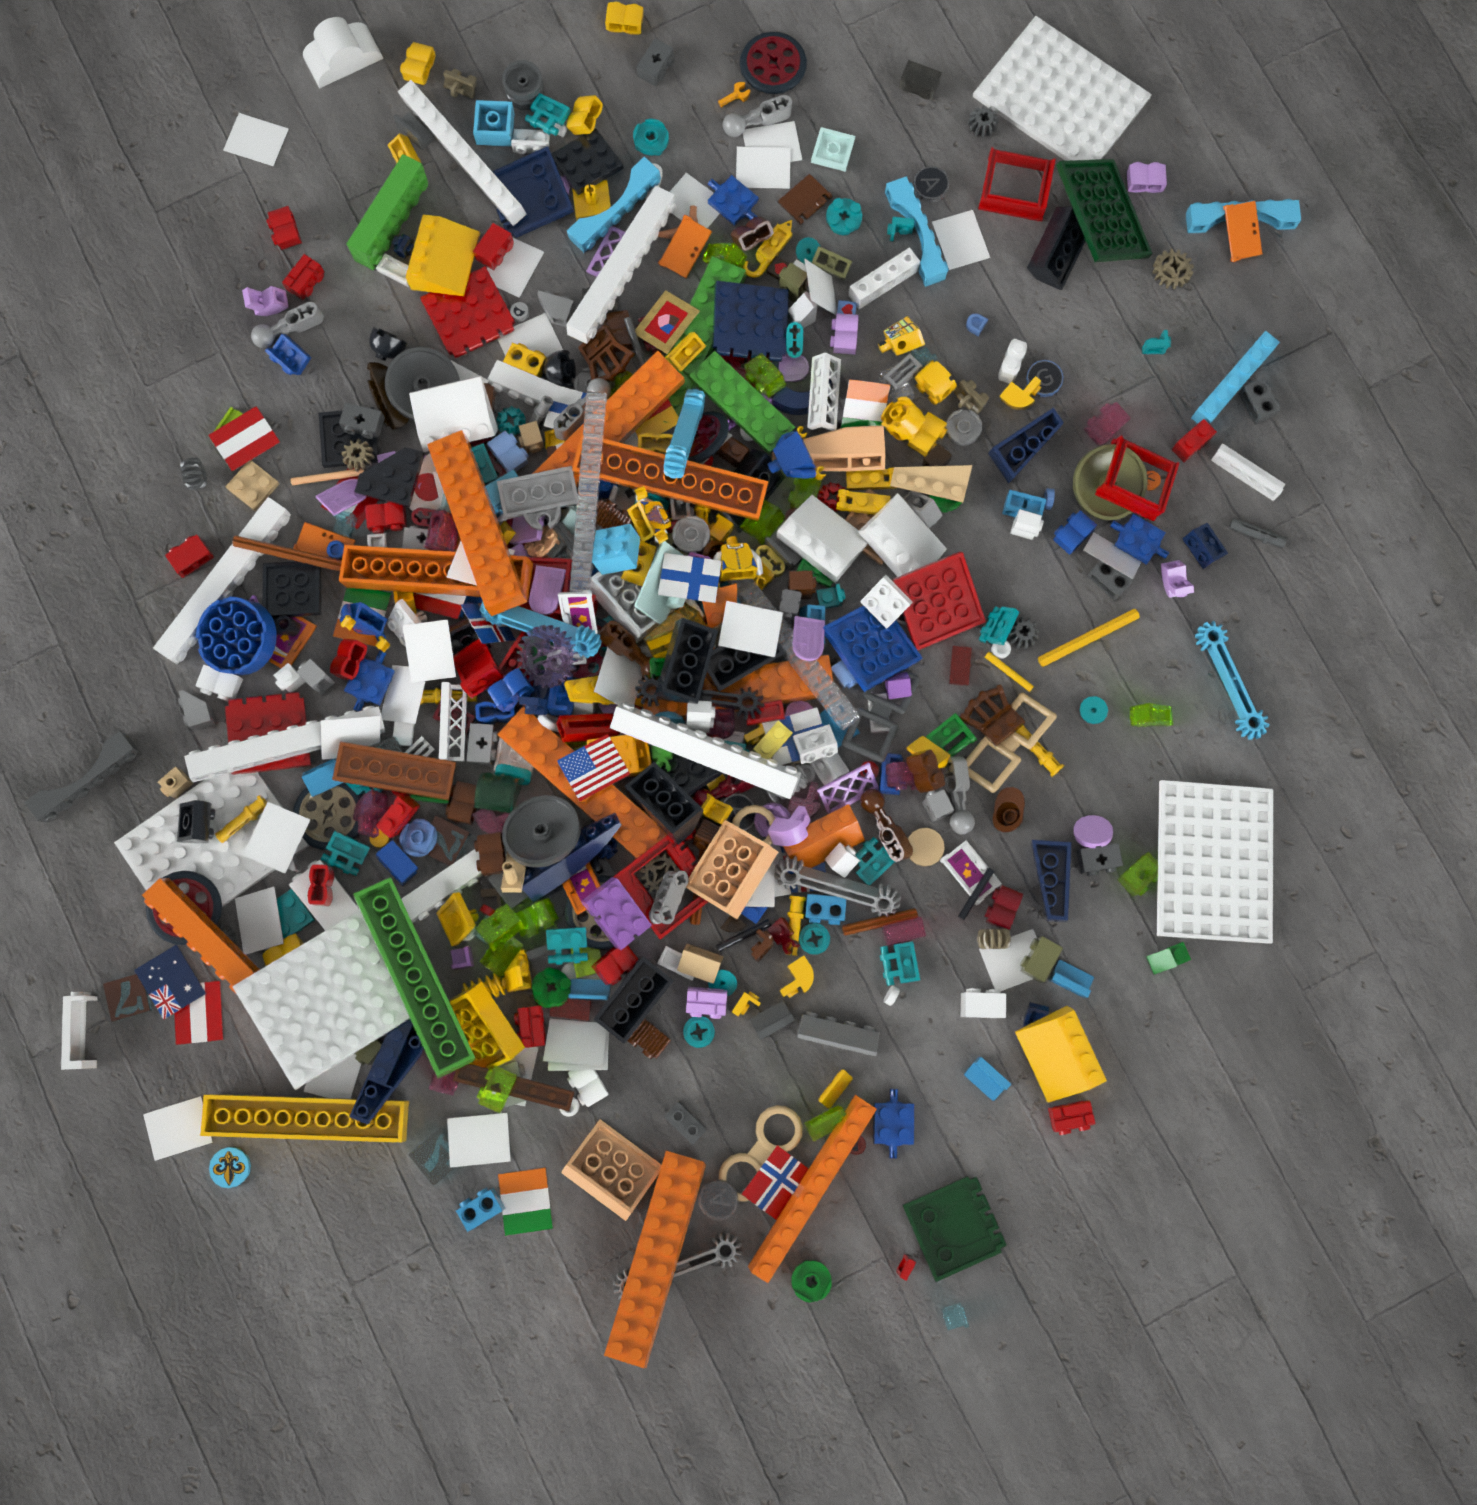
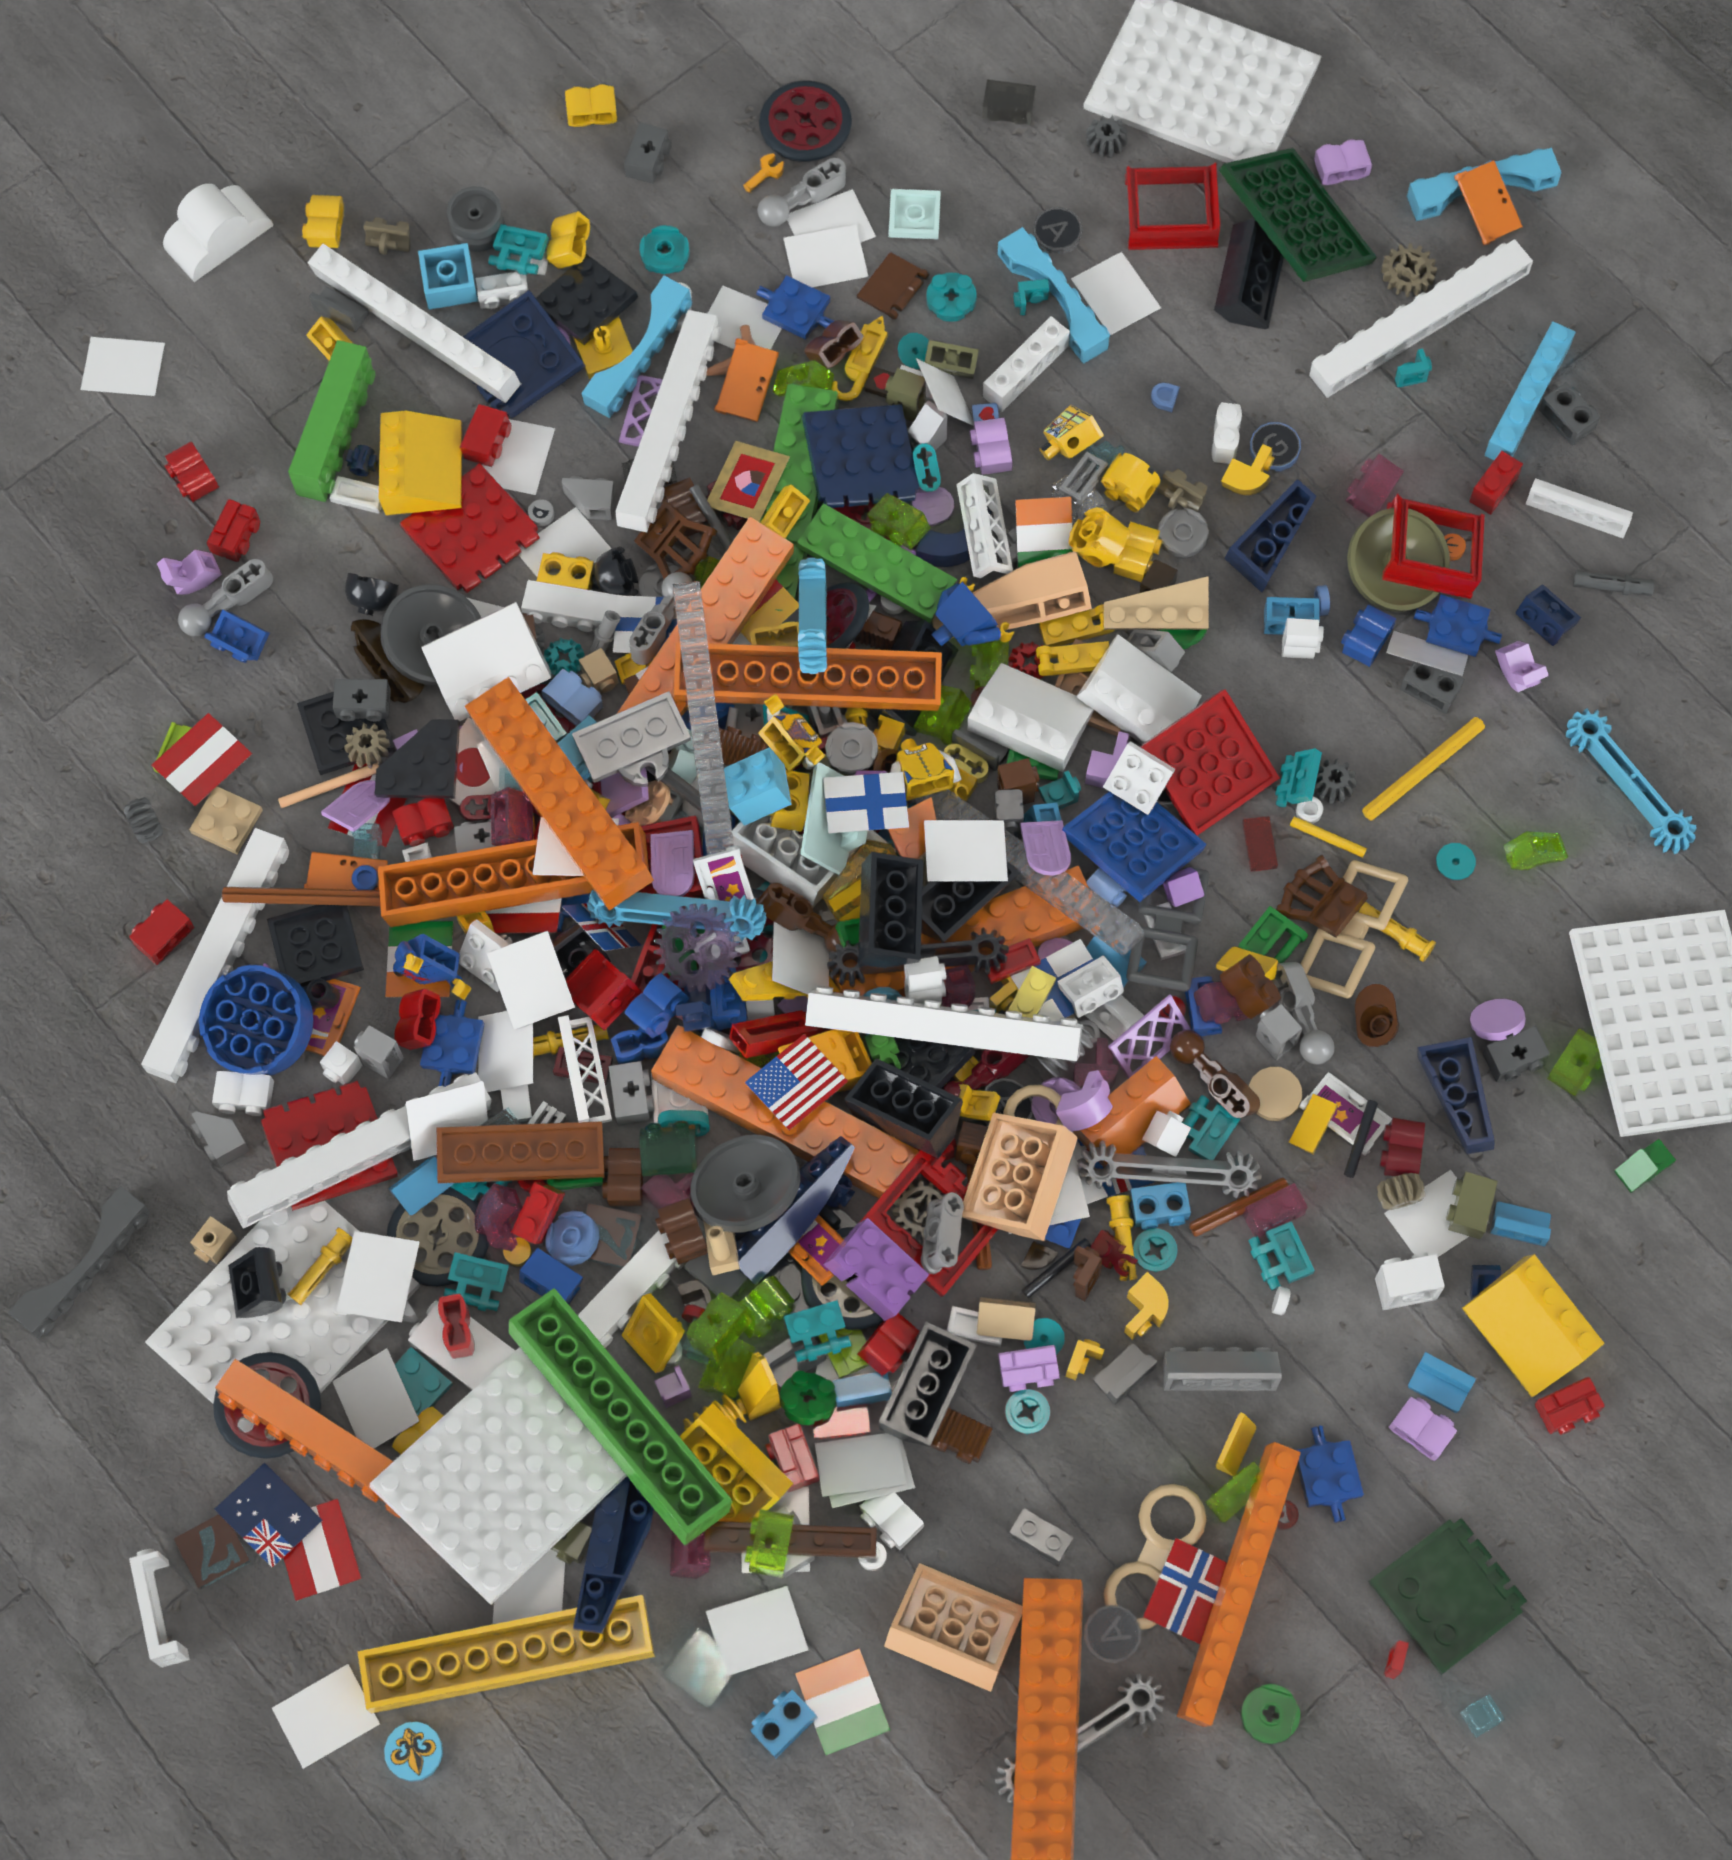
camera: 10 degrees left, 10 degrees down
(864, 584) = (1102, 764): none -> lavender brick
(945, 875) = (1313, 1124): none -> yellow slope
(966, 1108) = (1423, 1428): none -> lavender brick
(1172, 306) = (1420, 318): none -> white brick

